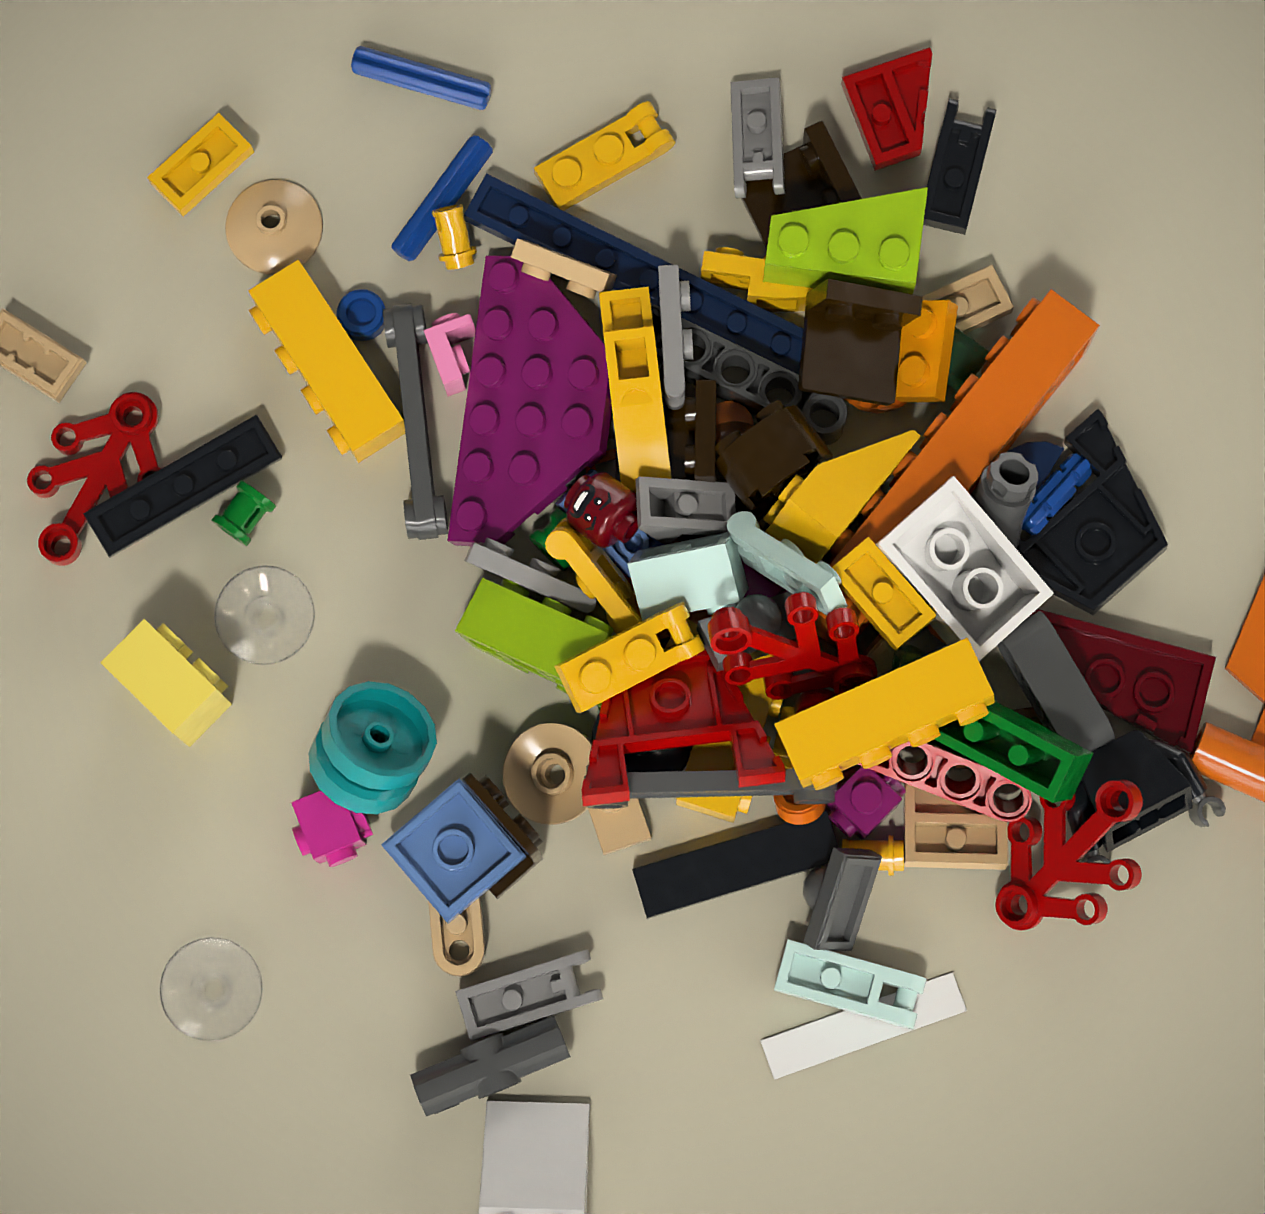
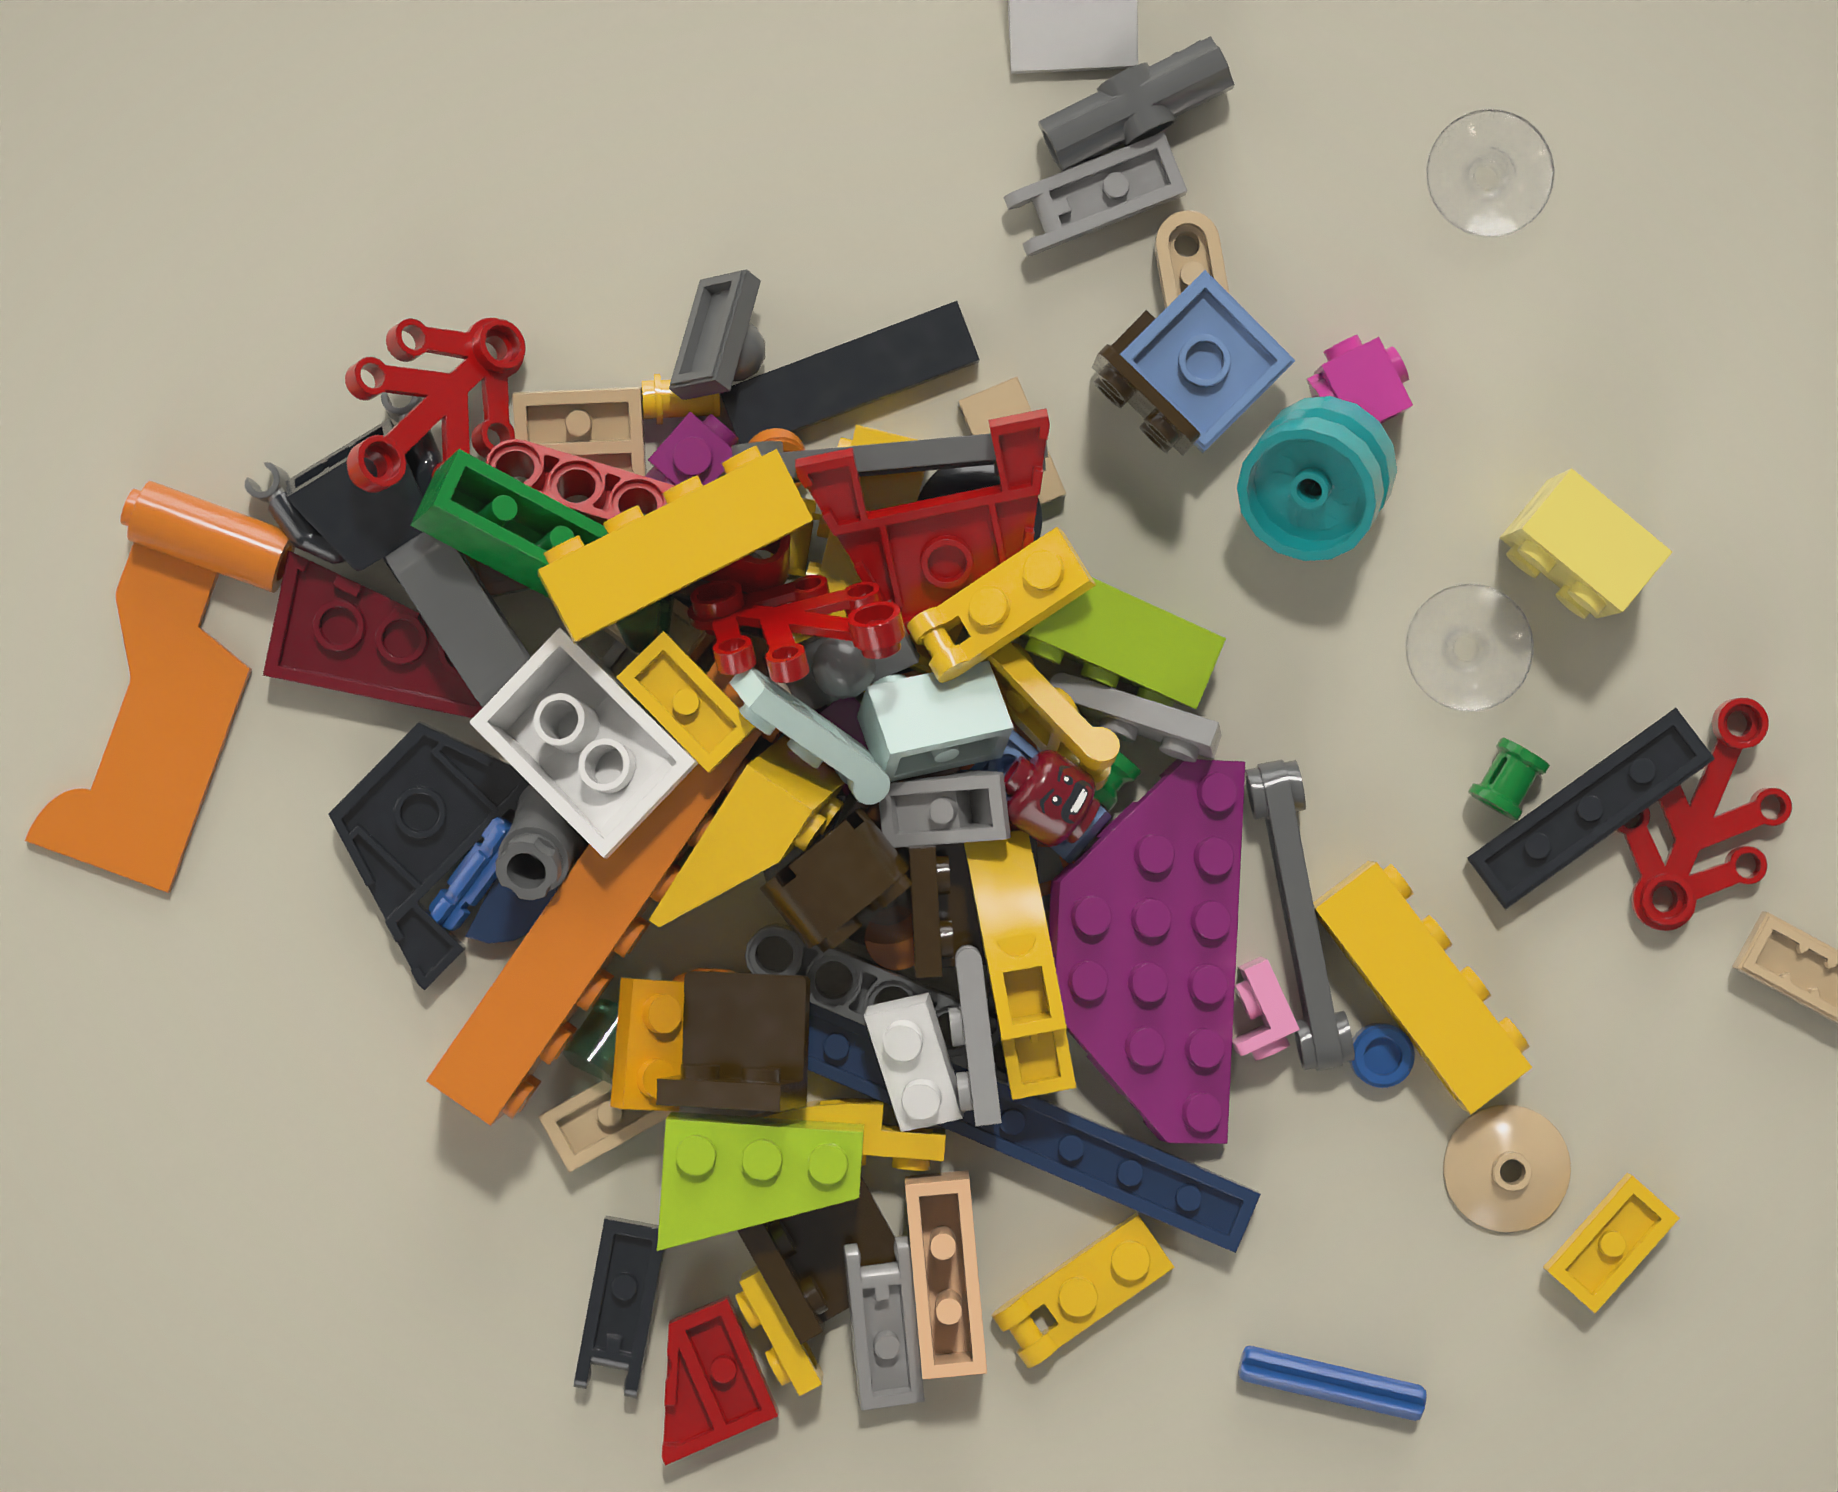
camera: 170 degrees right, 10 degrees up
(444, 193) = (1290, 1219): blue axle -> none
(453, 237) = (1271, 1164): yellow pin -> none
(529, 768) = (1116, 463): tan dish -> none
(582, 277) = (1148, 1131): tan plate -> none
(708, 169) = (945, 1274): none -> light nougat brick
(721, 324) = (914, 1061): none -> white plate
(833, 114) = (787, 1357): none -> yellow plate
(848, 983) = (701, 235): light aqua plate -> none
(851, 1031) = (680, 191): white sticker -> none

